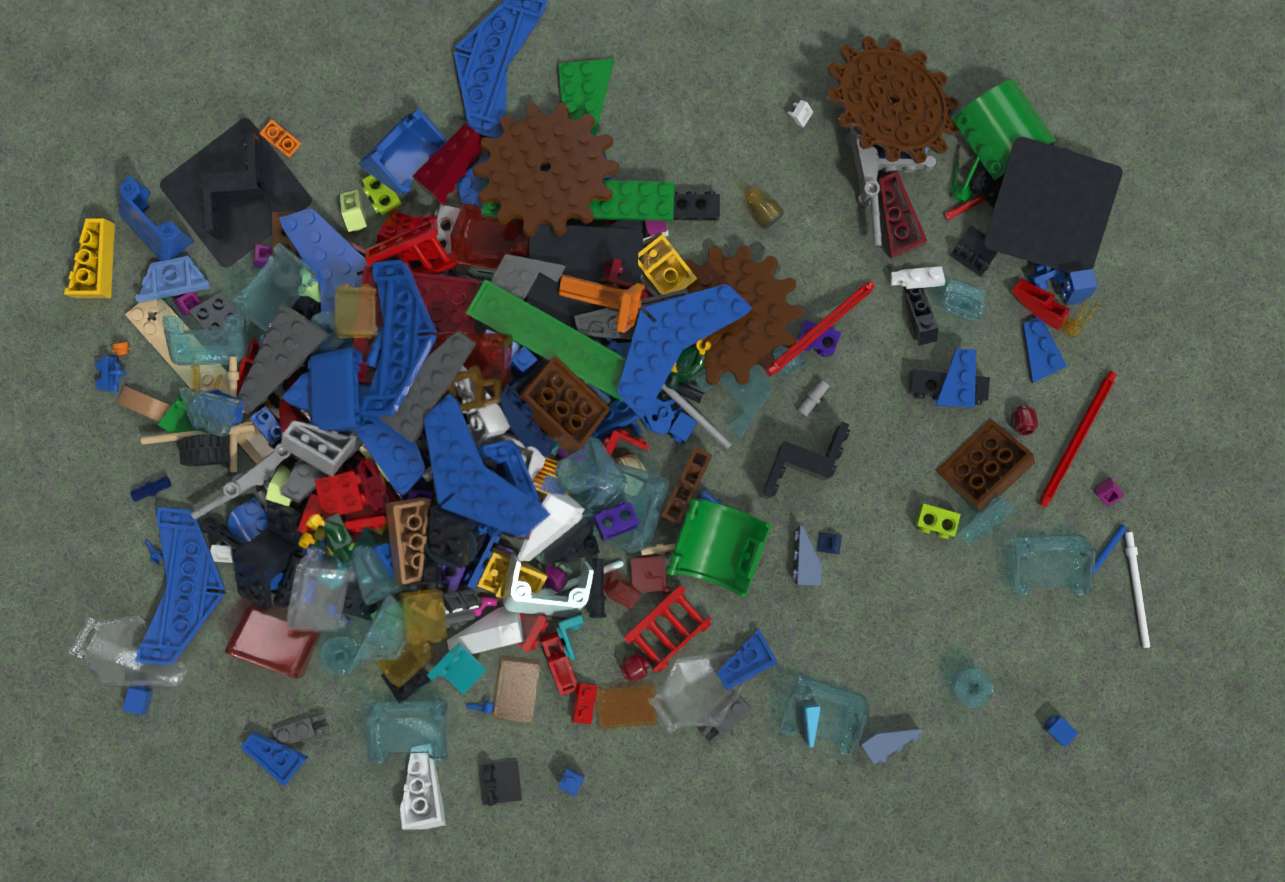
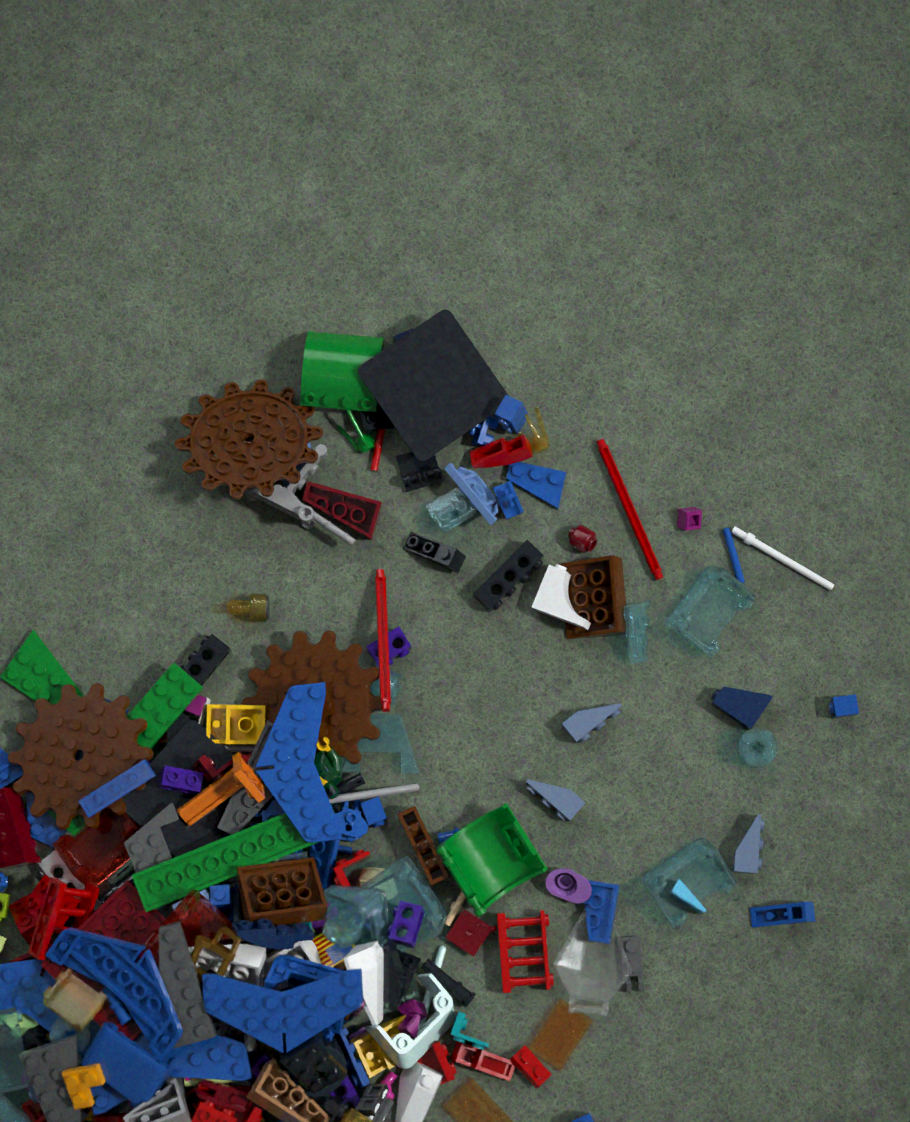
camera: 50 degrees left, 5 degrees down
(297, 366) = (79, 1081): none -> light orange plate
(540, 586) = (410, 1025): none -> magenta slope
(542, 215) = (117, 788): none -> blue tile
(587, 259) = (180, 780): none -> dark purple brick
(621, 590) = (464, 964): clear red slope -> none
(634, 667) = (534, 1003): dark red head -> none
(746, 623) = (568, 885): none -> medium lavender piece
(801, 113) = (199, 516): white tile -> none
(806, 460) = (478, 735): black bracket -> none
(813, 398) = (433, 689): light grey pin -> none
(829, 543) = (558, 768): dark blue slope -> none
(857, 809) = (782, 914): none -> blue slope
(884, 535) = (584, 721): none -> sand blue slope
(918, 277) = (404, 530): white hinge -> none
(937, 515) = (603, 666): lime brick -> none
(959, 383) = (512, 566): blue wing -> none
(960, 435) = (554, 598): none -> white arch
(995, 648) = (741, 705): none -> dark blue slope
(996, 307) = (476, 490): none -> medium blue wing
(1008, 338) = (508, 500): none -> blue hips

